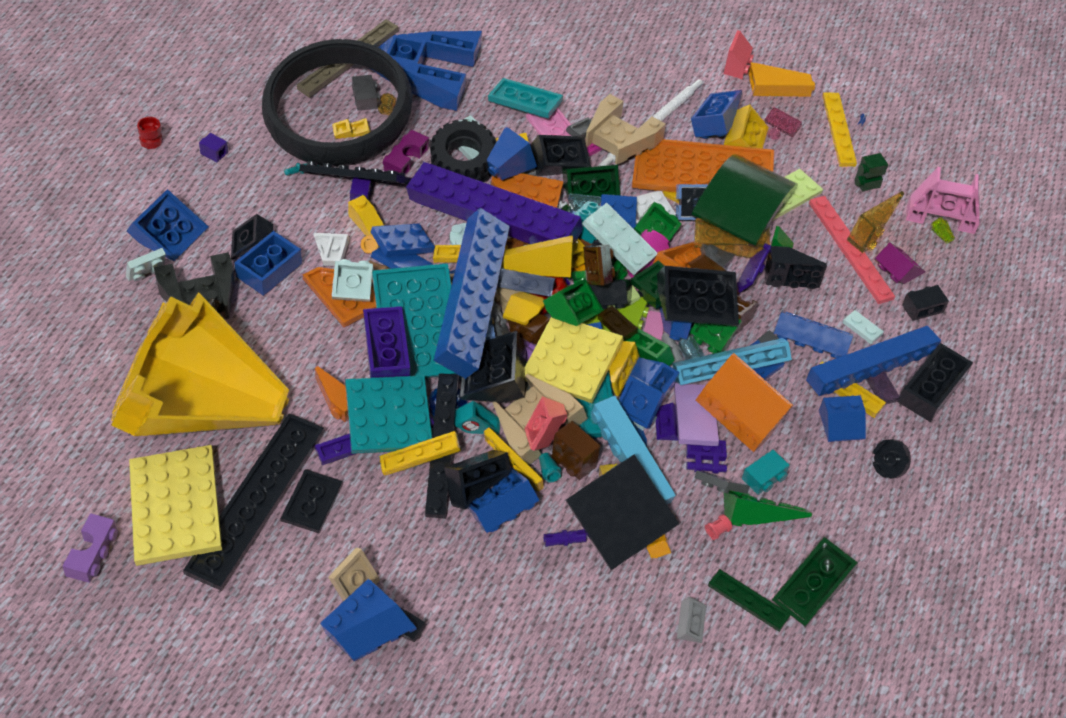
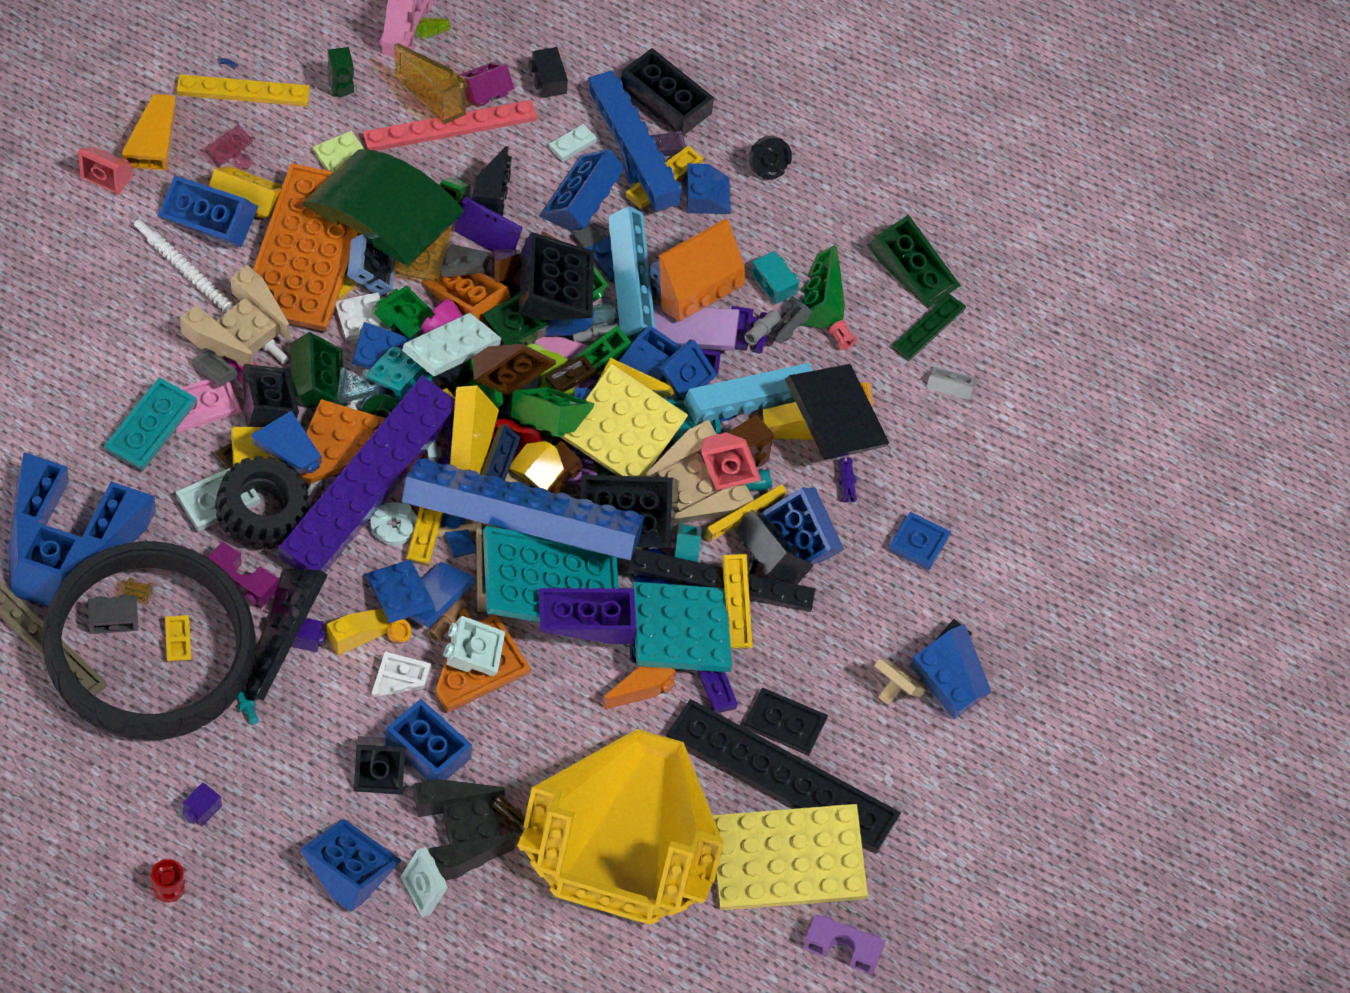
camera: 85 degrees left, 5 degrees up
(509, 596) = (919, 540): none -> blue plate
(705, 459) = (762, 327): none -> light grey pin

